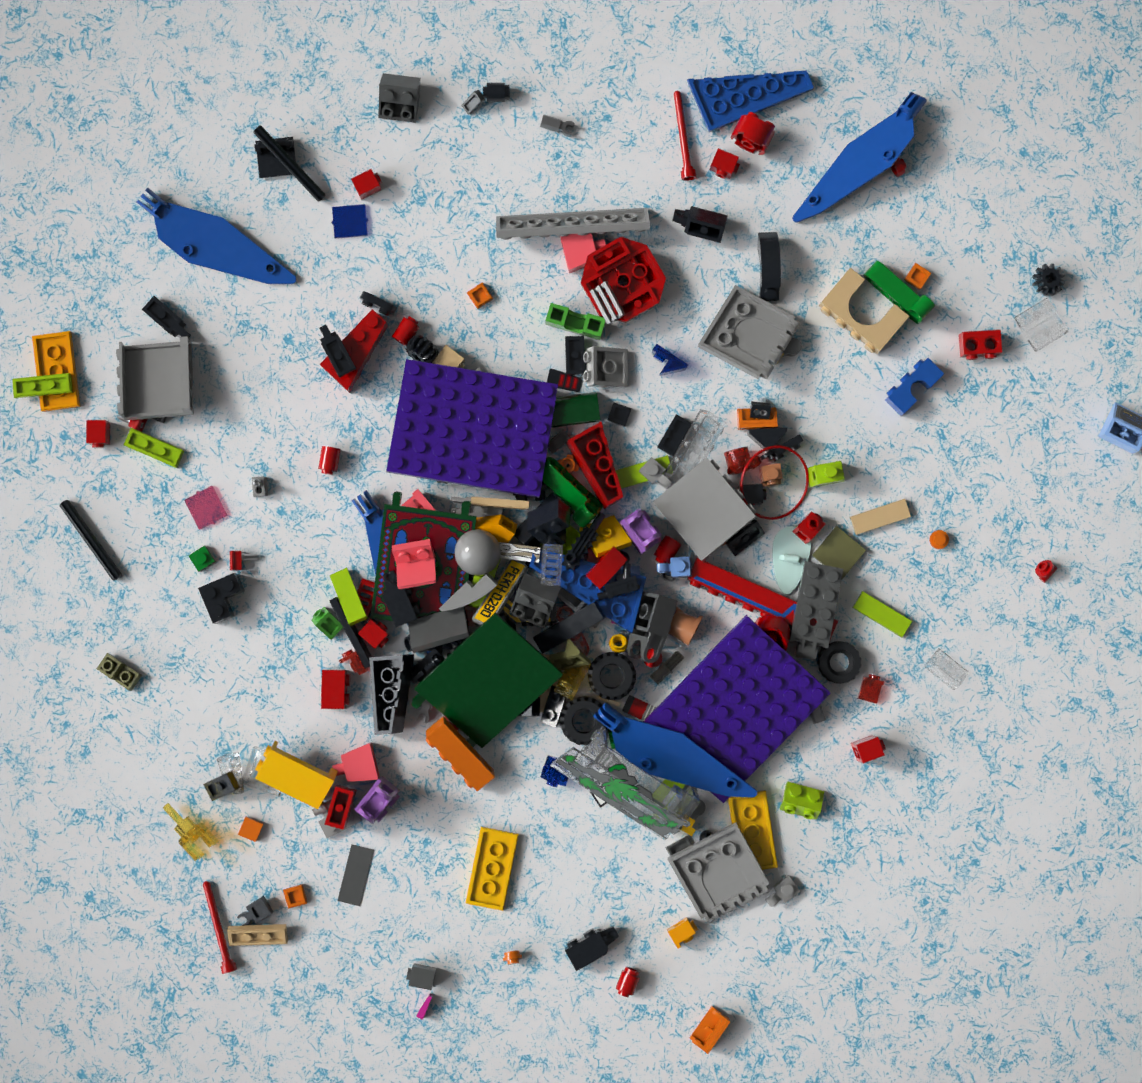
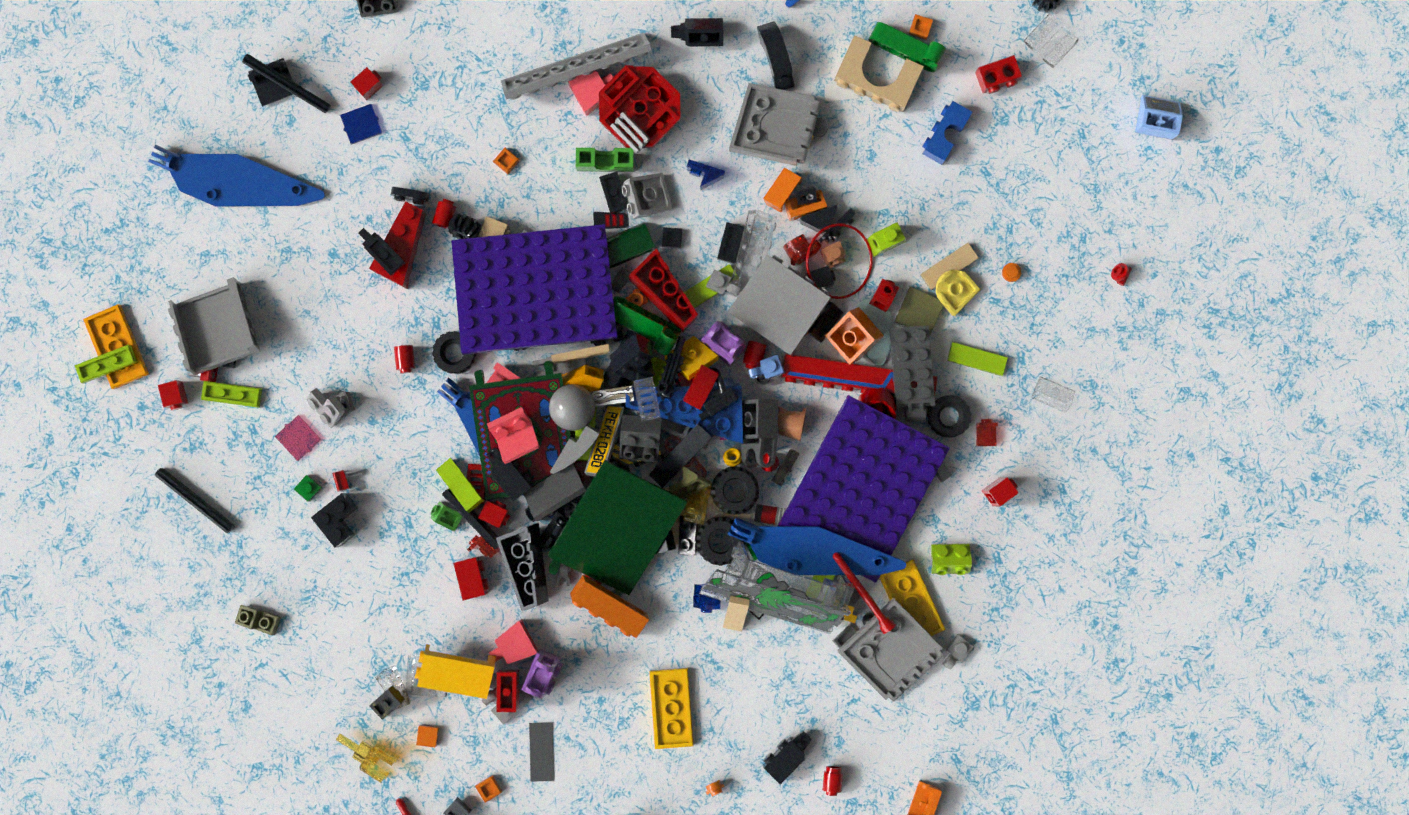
camera: 20 degrees left, 0 degrees up
(165, 317) = (207, 265): black hinge -> none
(243, 490) = (328, 409): none -> light grey plate
(364, 472) = (439, 354): none -> black tyre
(580, 794) = (736, 613): none -> tan tile
(682, 931) = (871, 717): light orange brick -> none
(721, 845) = (885, 623): none -> red piece
(738, 397) = (782, 189): none -> orange hinge
(768, 558) = (854, 335): none -> orange brick
(879, 542) = (955, 290): none -> light yellow tile

